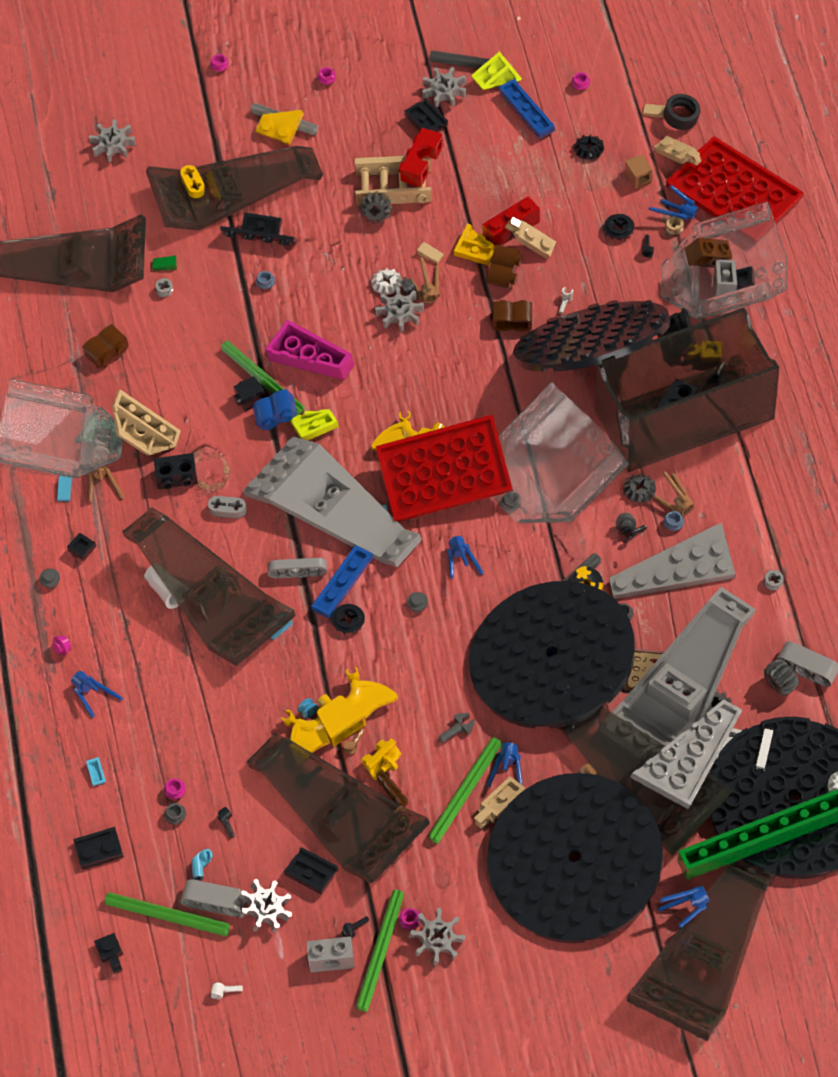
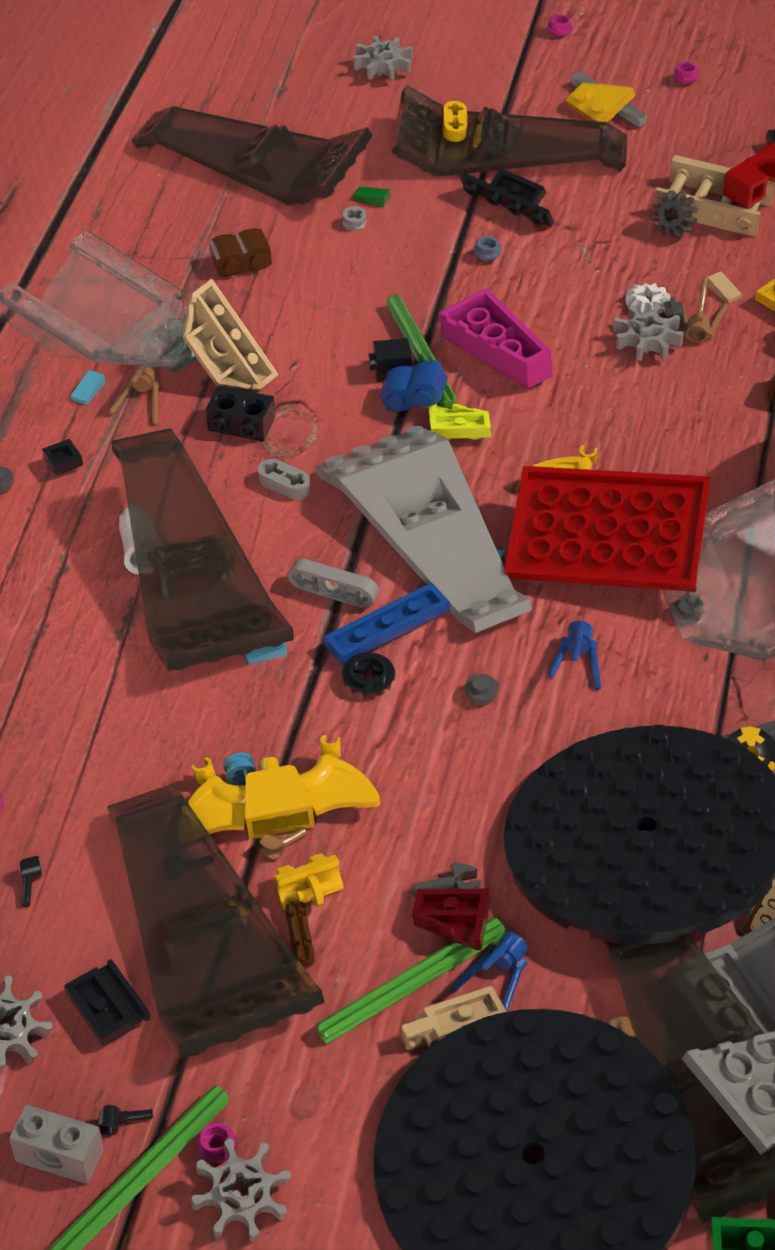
camera: 20 degrees right, 10 degrees down
(470, 745) = (454, 914): none -> dark red wing

